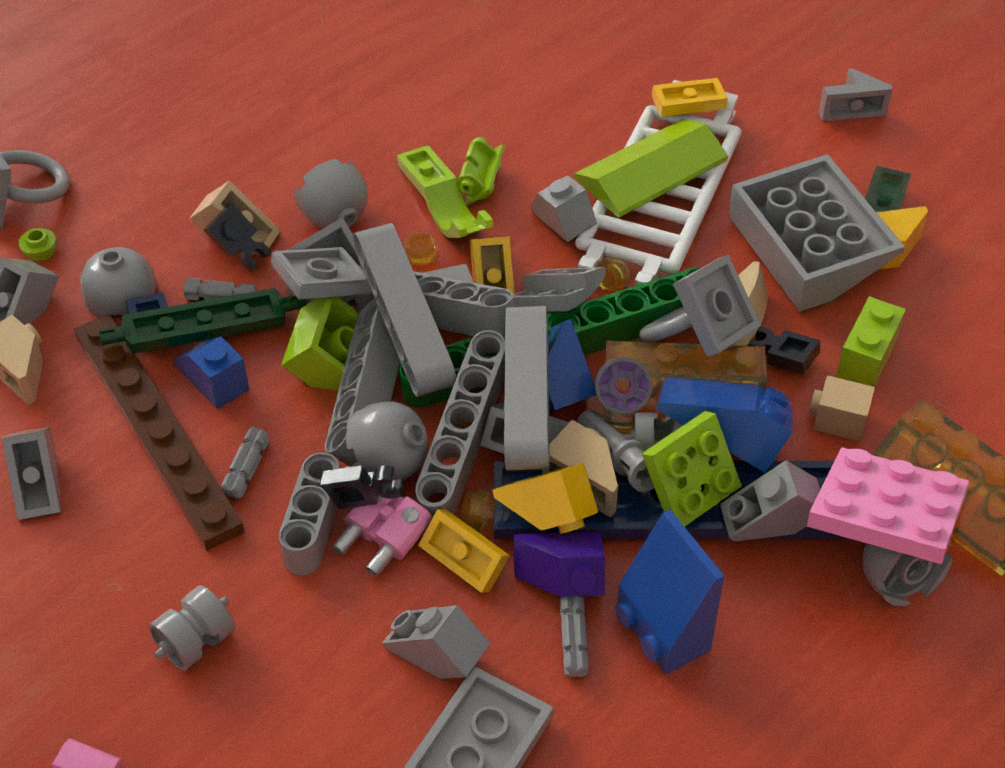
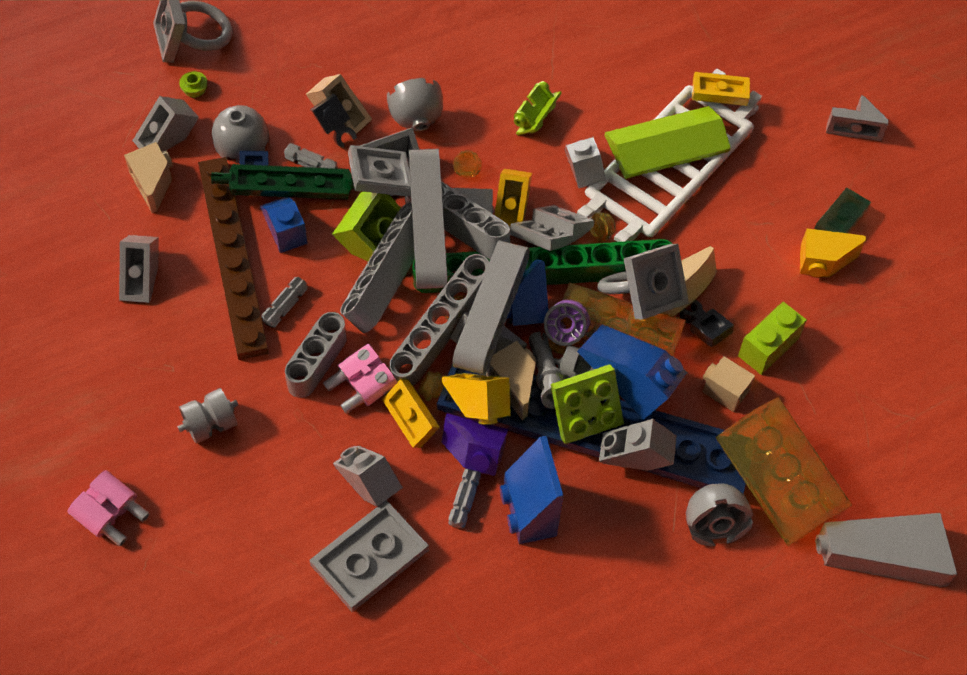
camera: 15 degrees right, 10 degrees up
(355, 487) = (348, 347): black plate -> none
(388, 436) = (383, 317): light grey cylinder -> none
(441, 193) = (500, 120): lime piece -> none
(812, 230) = (768, 231): light grey slope -> none
(889, 504) = (716, 473): bright pink plate -> none

